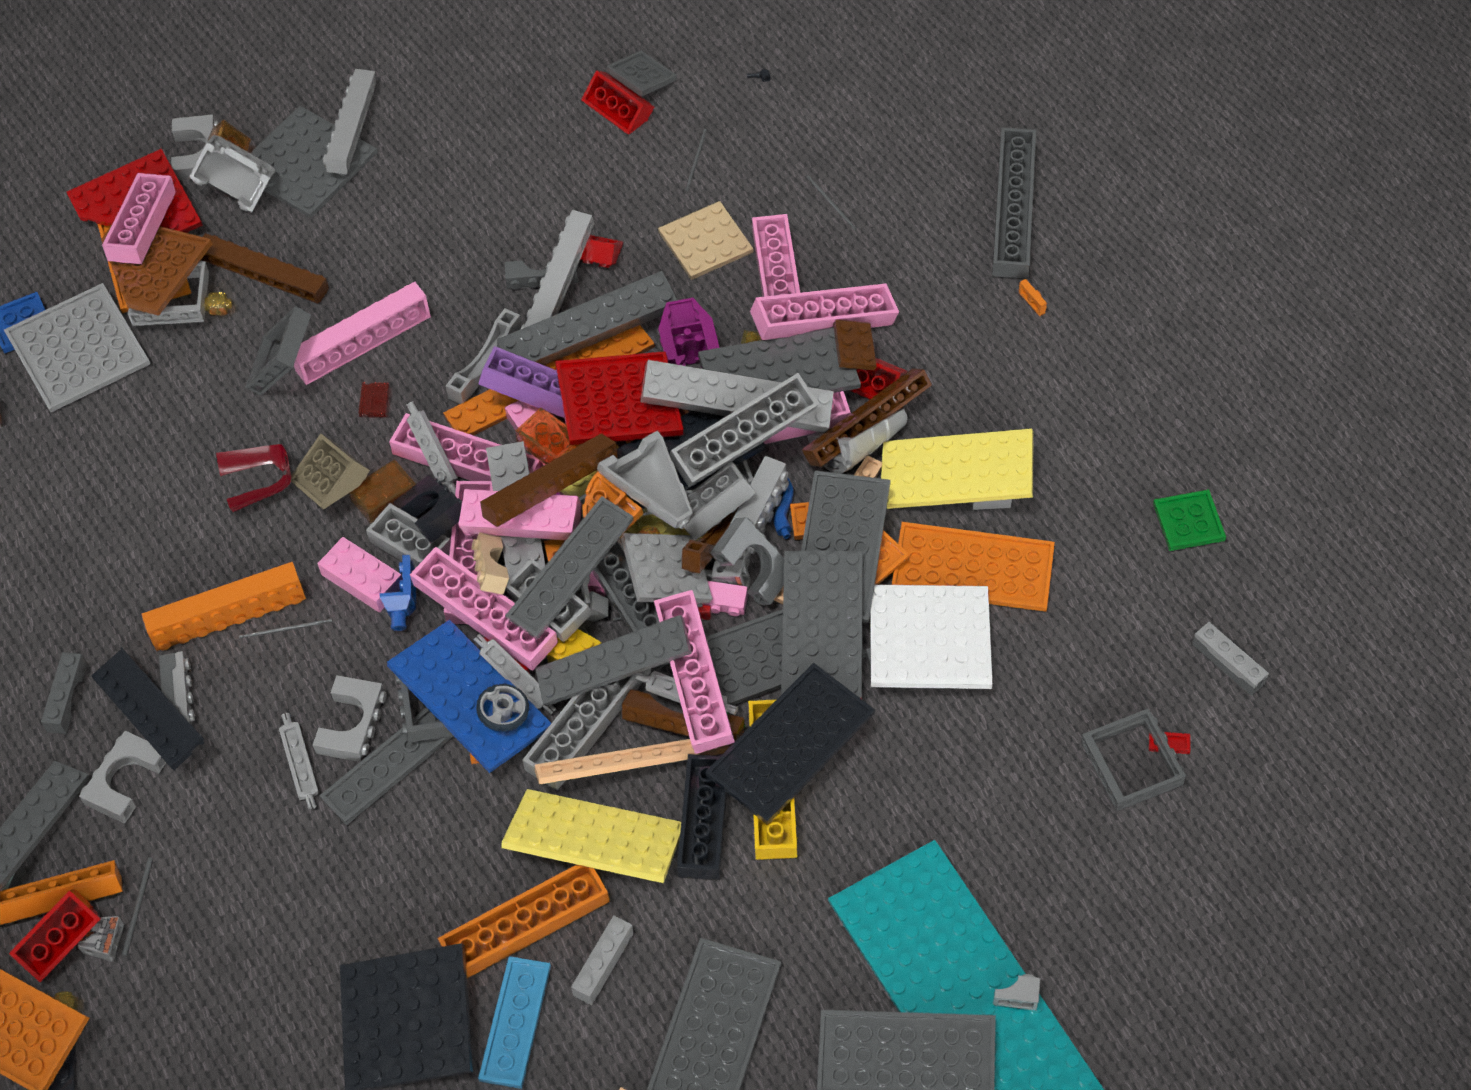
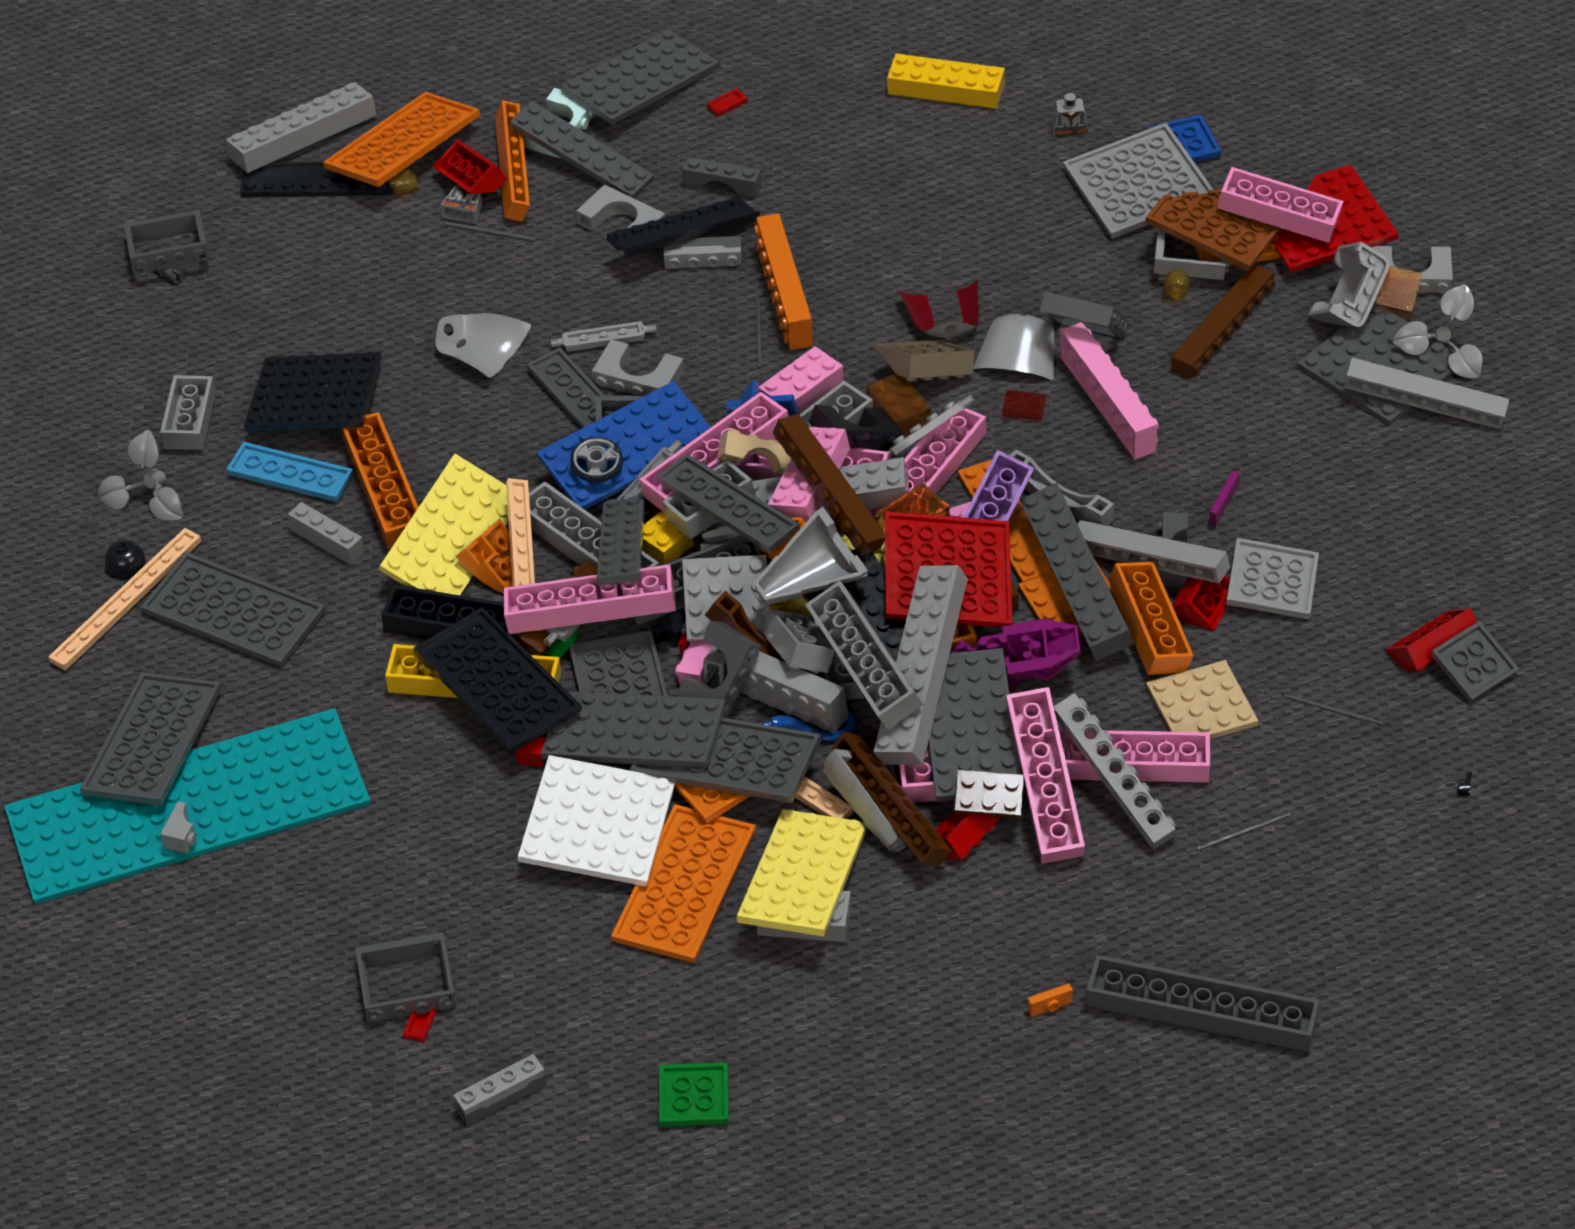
camera: 100 degrees right, 10 degrees down
(288, 131) = (1413, 336): none -> light grey plant
(301, 412) = (1019, 344): none -> light grey piece
(313, 871) = (488, 336): none -> light grey piece
(478, 245) = (1224, 498): none -> magenta tile
(557, 197) = (1272, 578): none -> light grey plate
(618, 798) = (490, 557): none -> orange brick
(629, 268) = (1150, 618): none -> orange brick
(811, 267) = (1153, 834): none -> light grey brick

